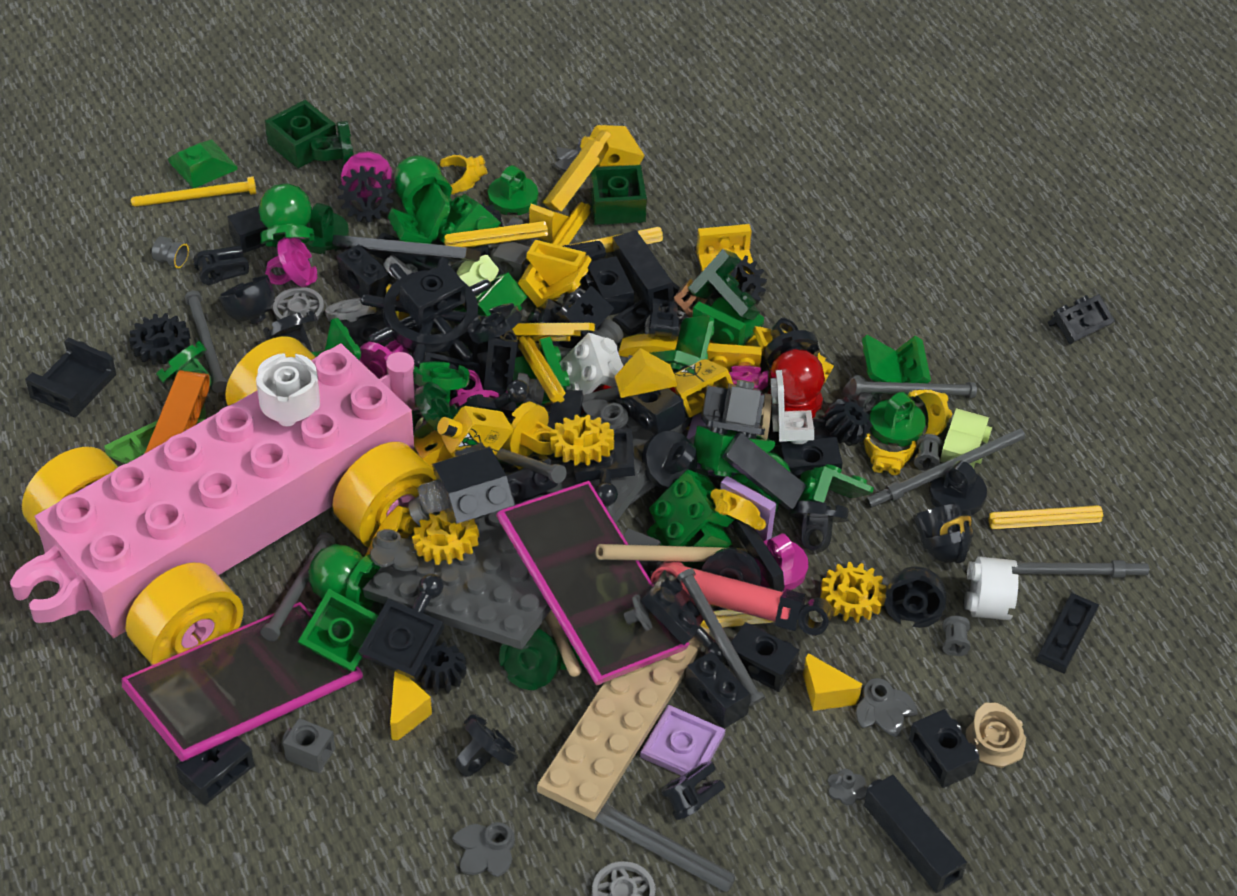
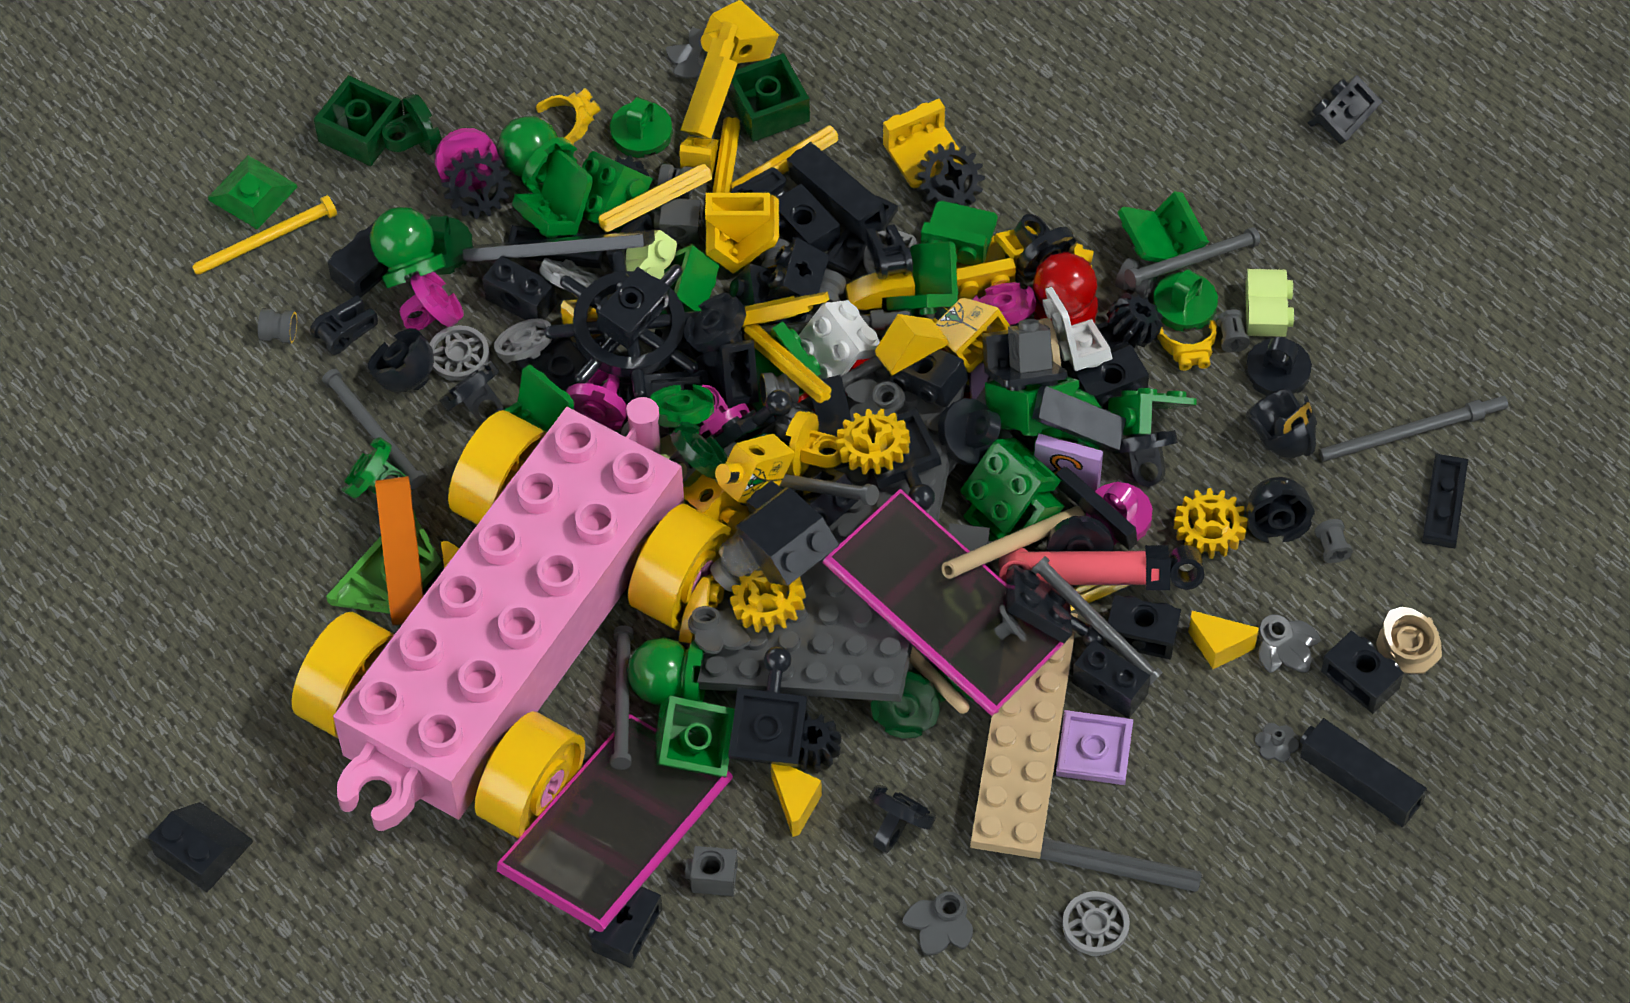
camera: 15 degrees left, 10 degrees up
(73, 378) = (245, 522): black panel -> none
(159, 338) = (323, 444): black gear -> none
(288, 388) = (550, 488): white brick -> none
(682, 790) = (1126, 796): black piece -> none
(685, 305) = (902, 210): nougat tile -> none
(717, 277) = (945, 190): dark green bracket -> none
(737, 507) = (1059, 467): yellow helmet -> none
(896, 490) = (1214, 386): dark grey bar -> none
(937, 409) = (1226, 277): yellow helmet -> none
(992, 588) = (1355, 477): white brick -> none
(1045, 517) = (1381, 371): yellow axle -> none

